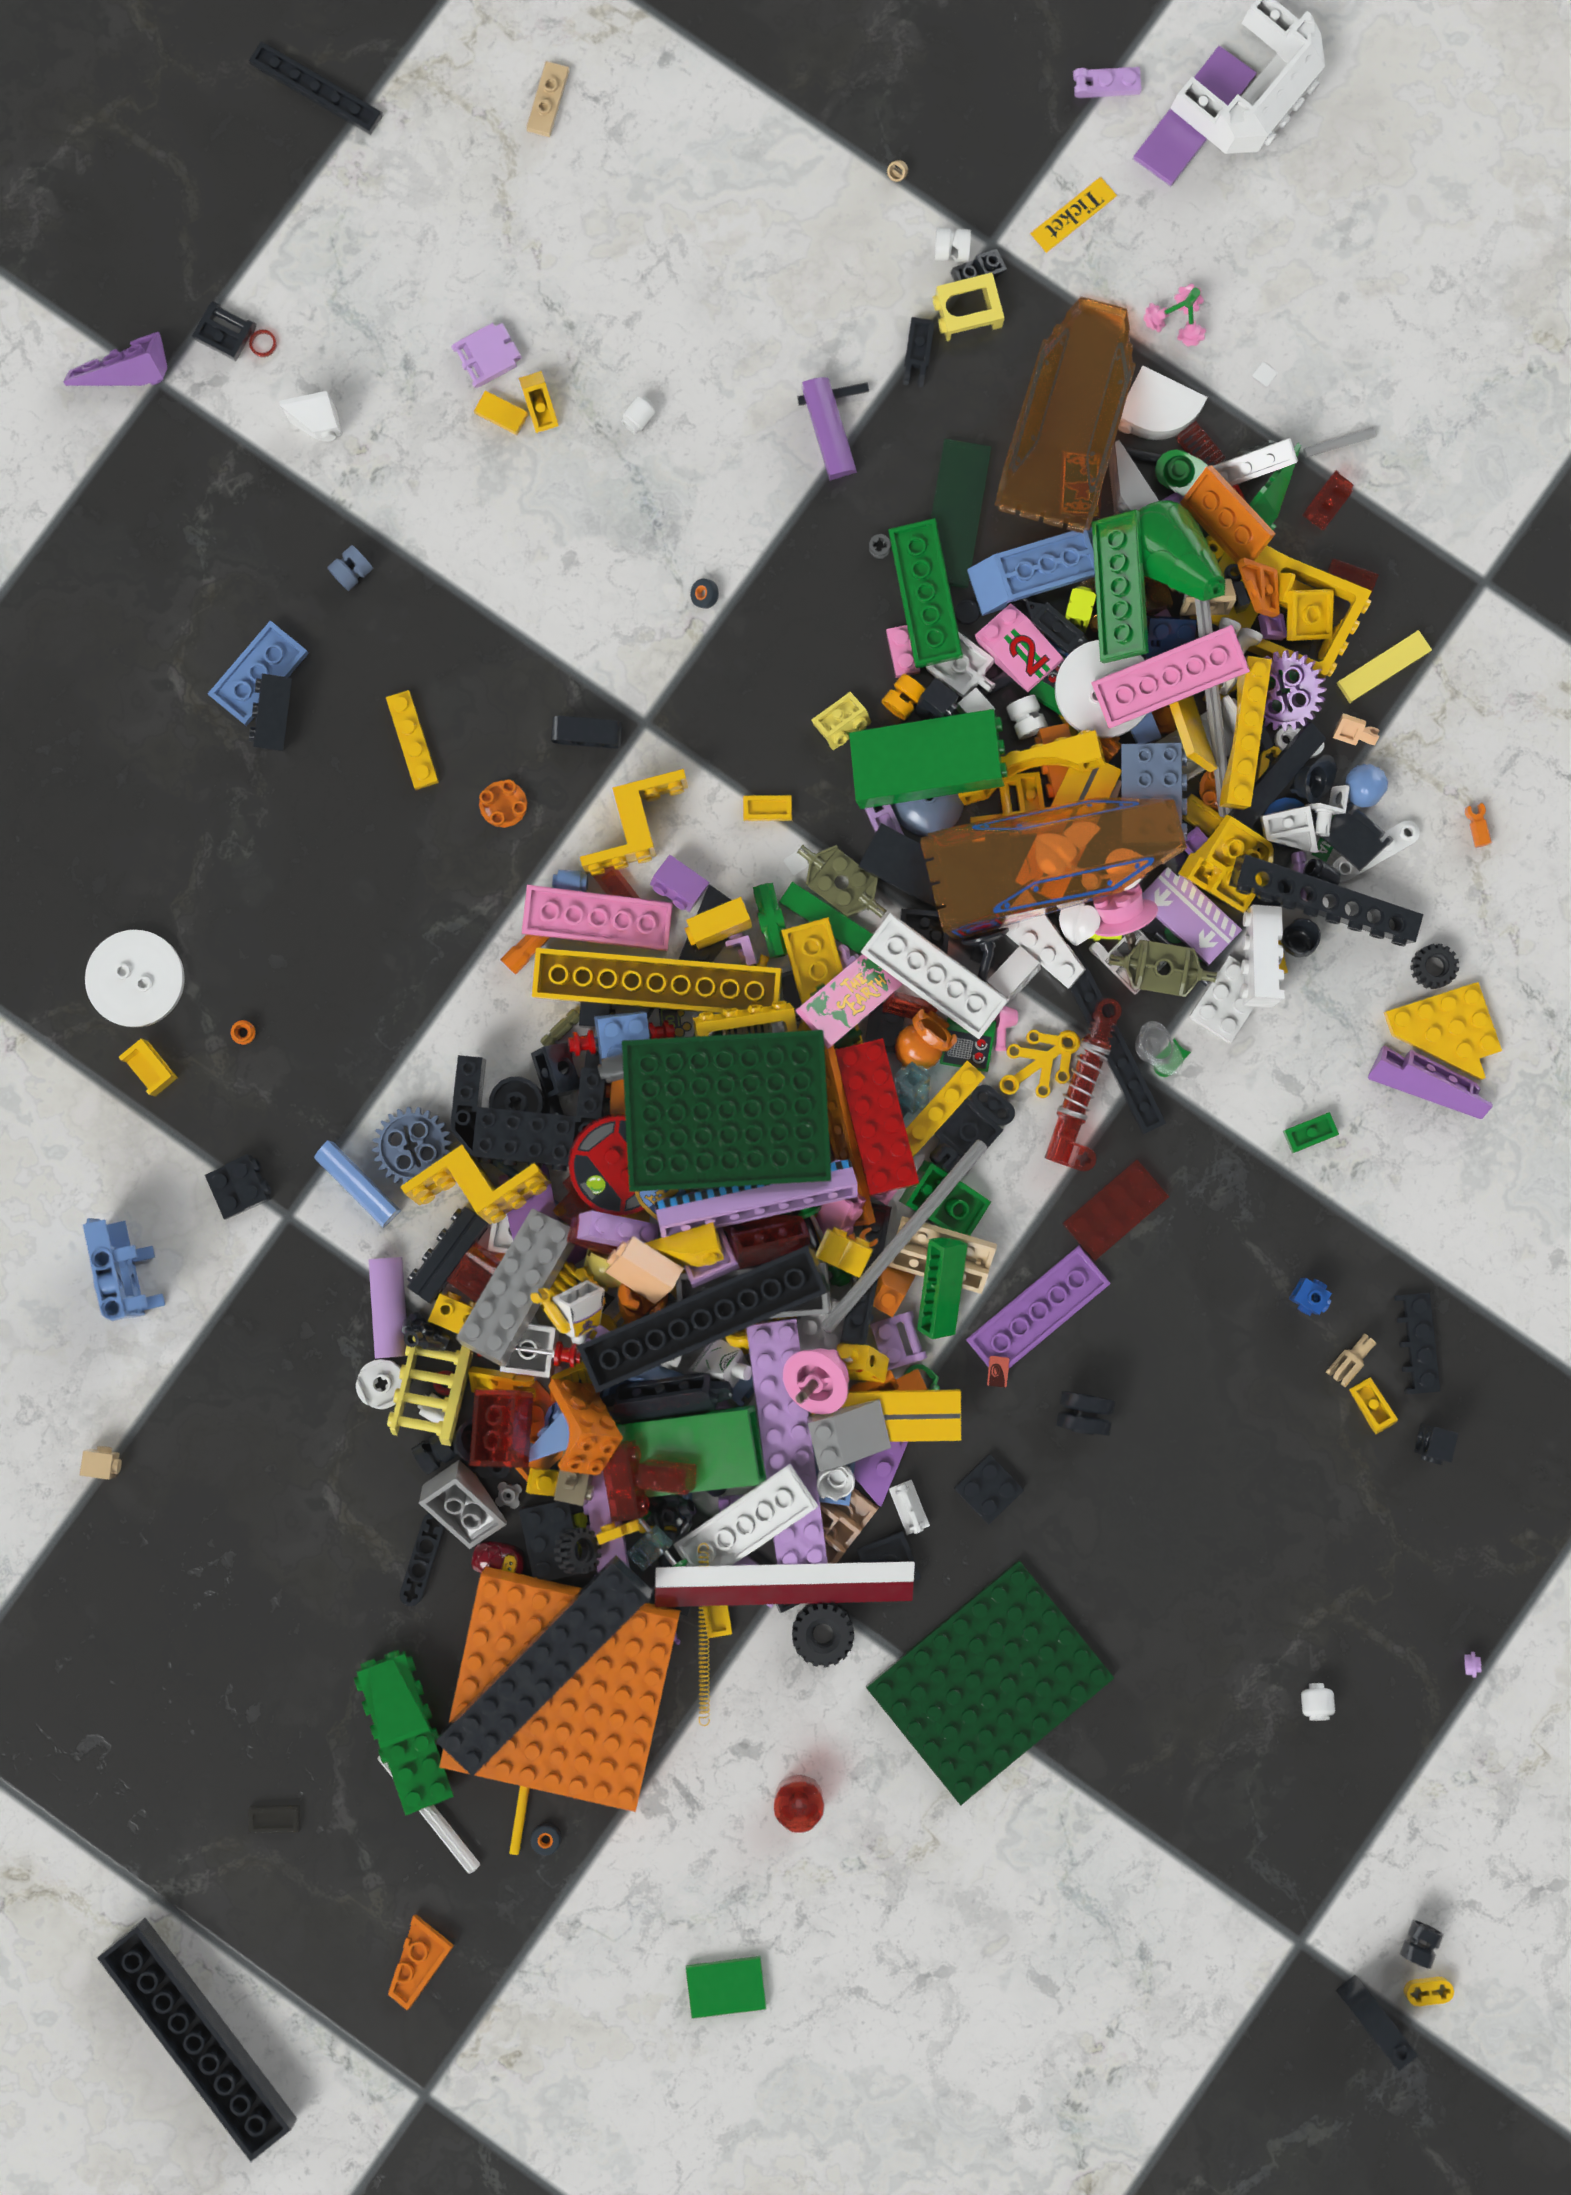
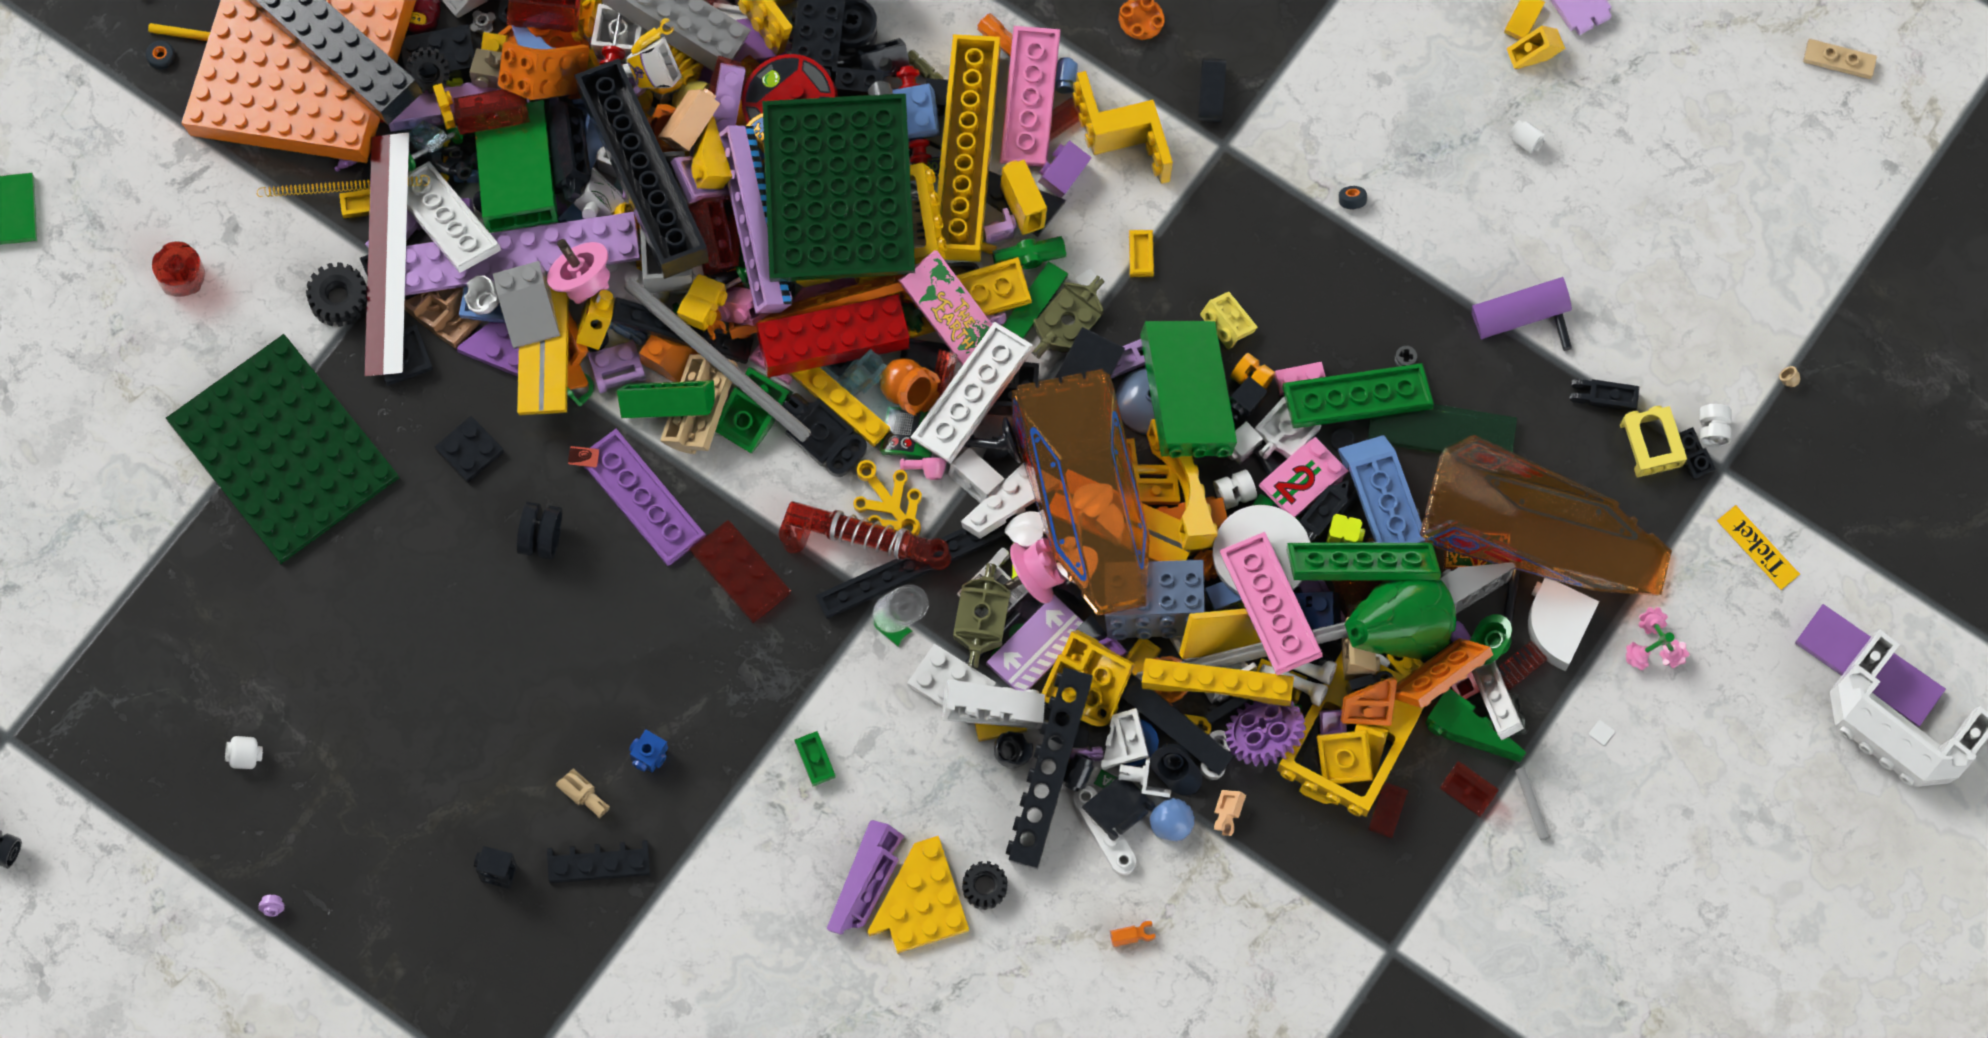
camera: 85 degrees right, 15 degrees down
(667, 1476) = (493, 141): clear red brick -> none
(909, 1507) = (455, 375): white hinge -> none
(1107, 82) = (1898, 580): lavender plate -> none
(1373, 1406) = (535, 817): yellow slope -> none
(1384, 666) = (1297, 843): light yellow tile -> none

